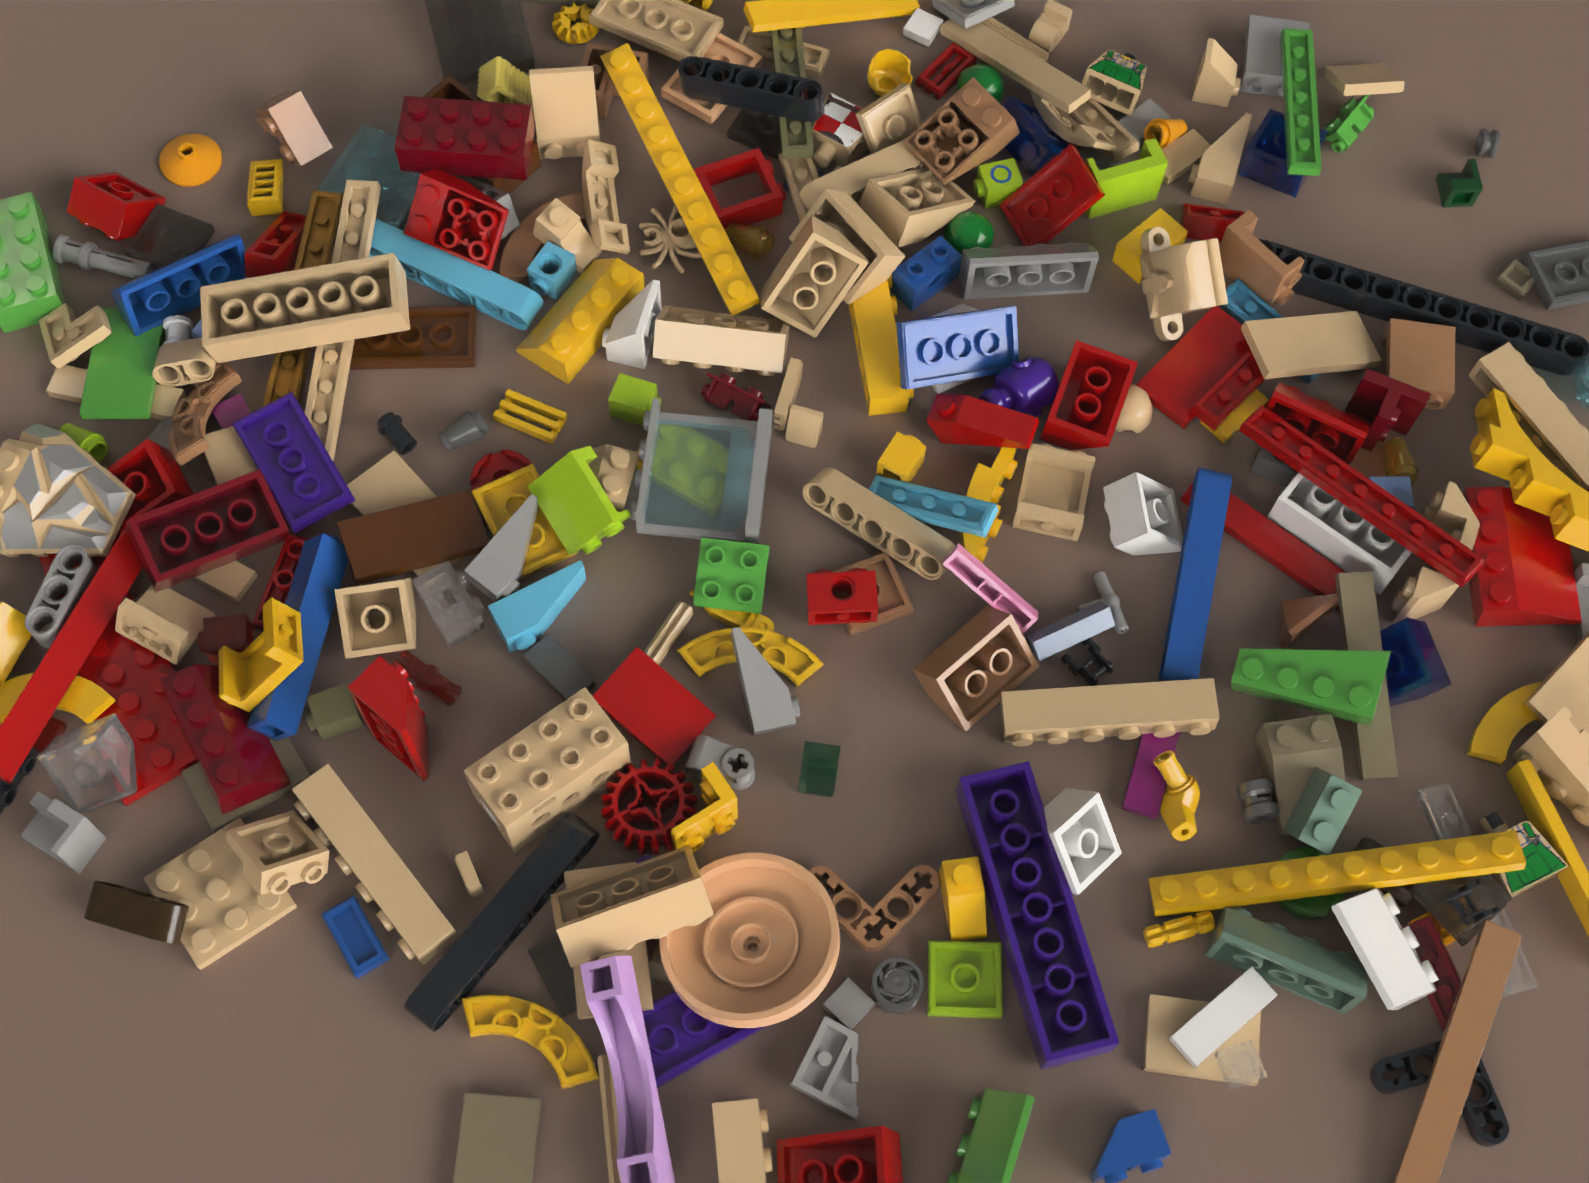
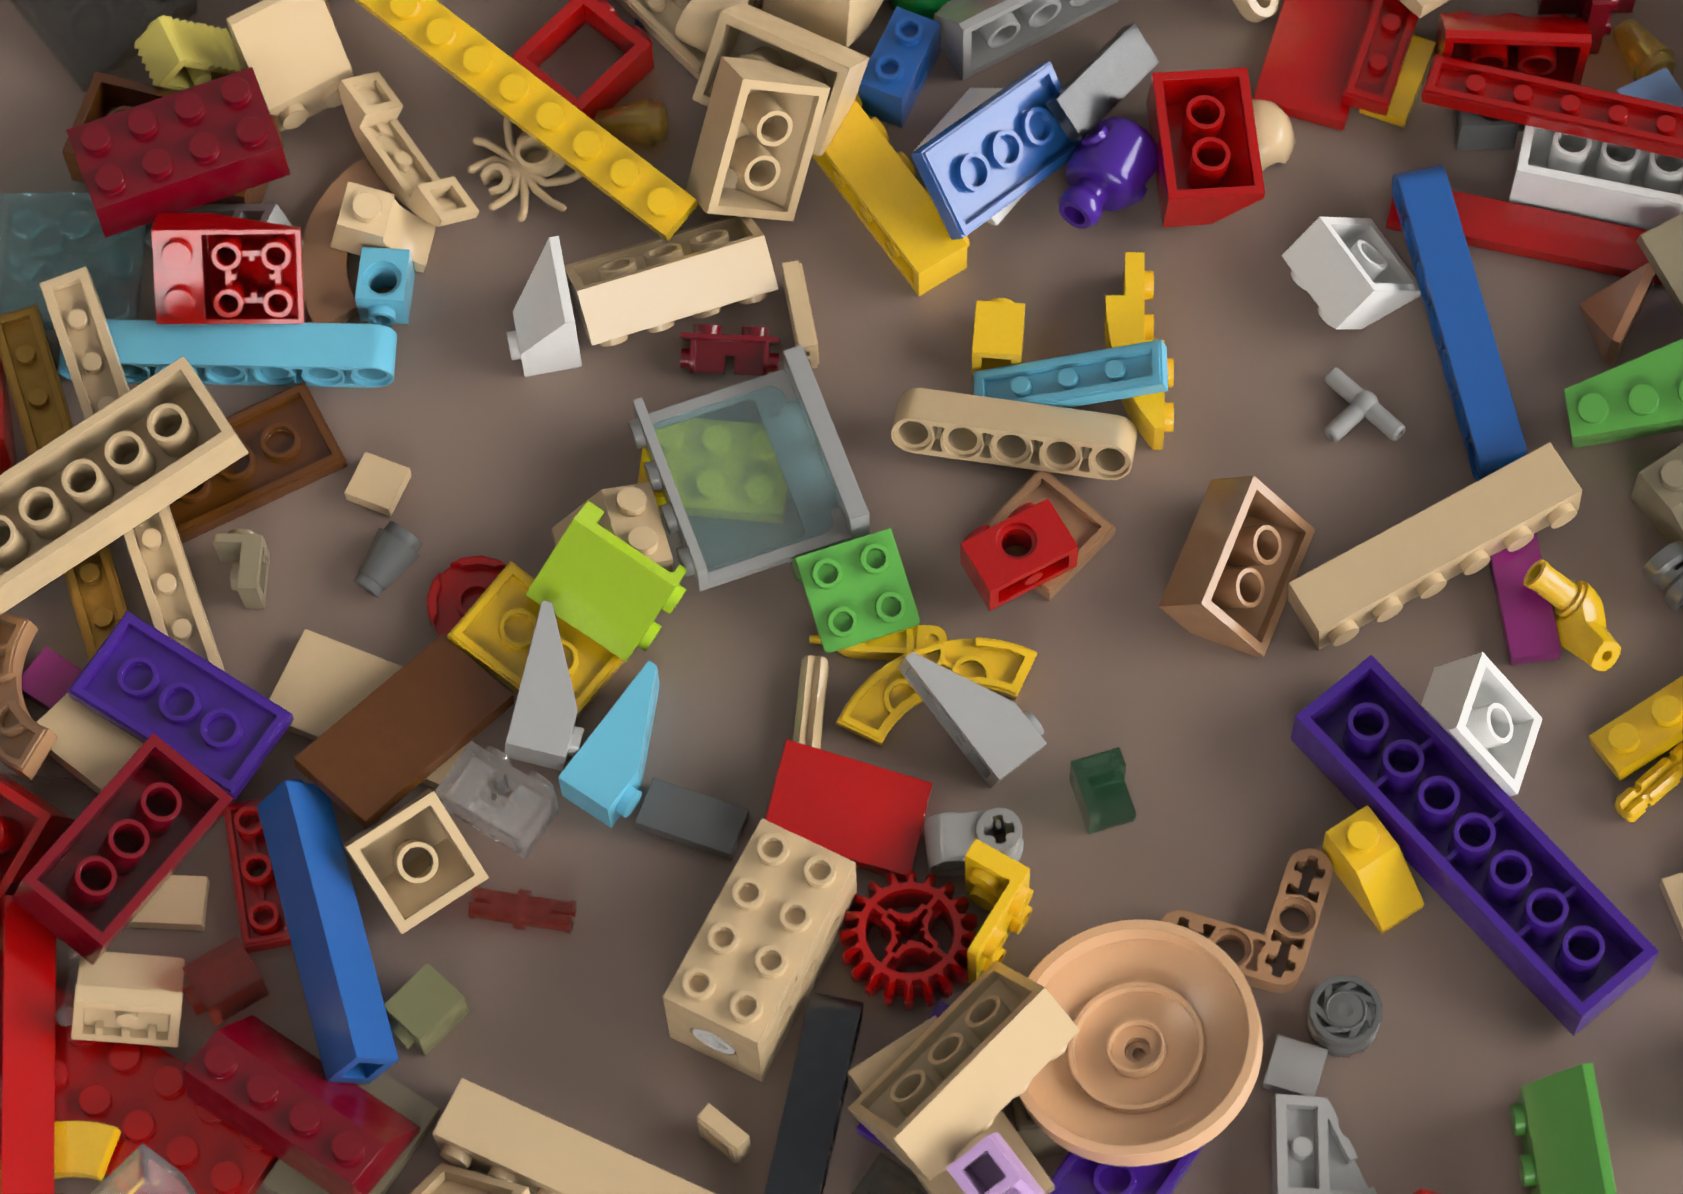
camera: 20 degrees left, 0 degrees up
(266, 662) = (306, 980): yellow panel -> none
(383, 398) = (249, 564): none -> dark tan bracket
(392, 427) = (294, 603): black pin -> none
(393, 713) = (528, 972): red slope -> none
(485, 384) = (378, 484): none -> tan tile
(535, 406) = (453, 487): yellow tile -> none
(578, 320) = (461, 331): yellow slope -> none
(631, 398) = (597, 414): lime brick -> none
(804, 426) = (844, 348): tan slope -> none
(964, 979) = (1423, 969): lime tile -> none
(979, 423) = (1080, 241): red slope -> none
(990, 586) = (1202, 452): bright pink piece -> none
(1044, 334) = (1102, 82): none -> tile
(1053, 491) = (1218, 290): tan panel -> none
(1070, 630) = (1334, 463): piece -> none
(1091, 678) = (1362, 510): black piece -> none

